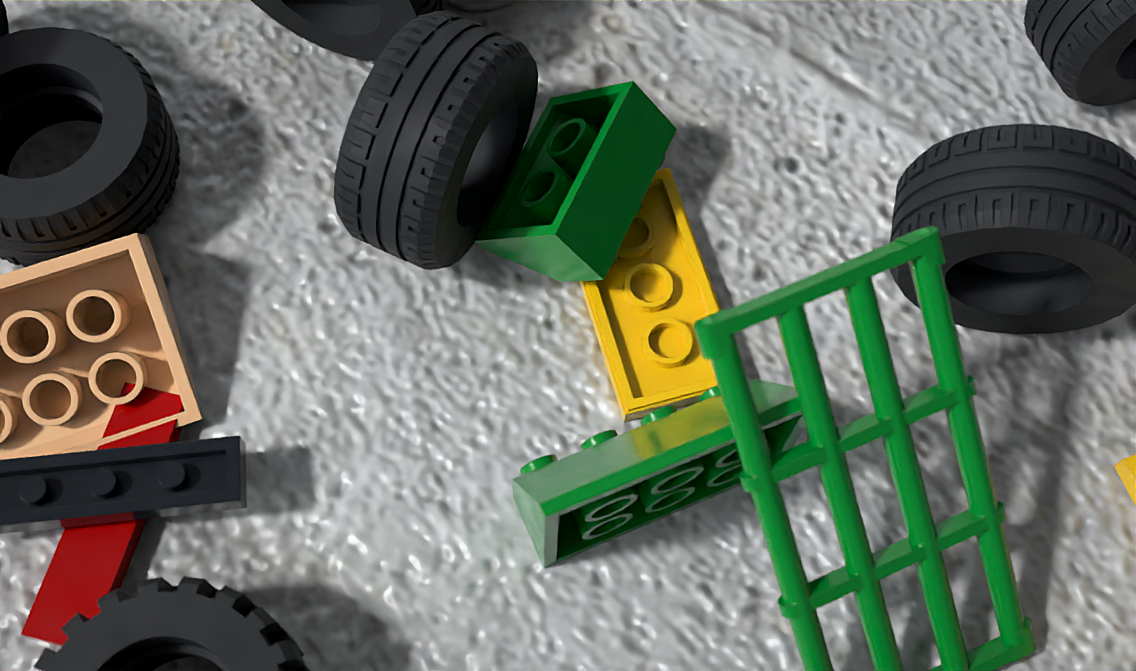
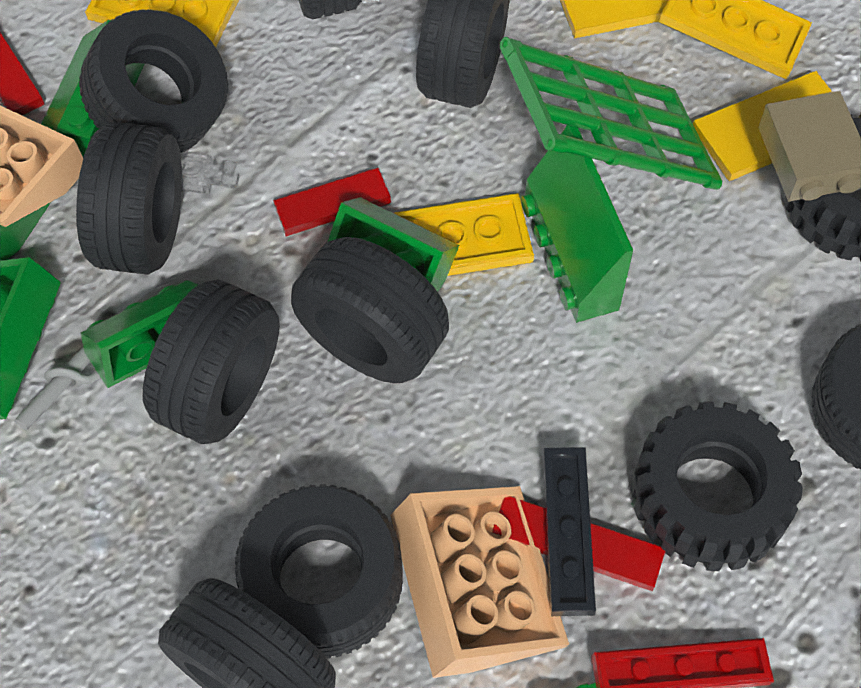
camera: 80 degrees left, 5 degrees down
(705, 130) = (321, 203): none -> red tile

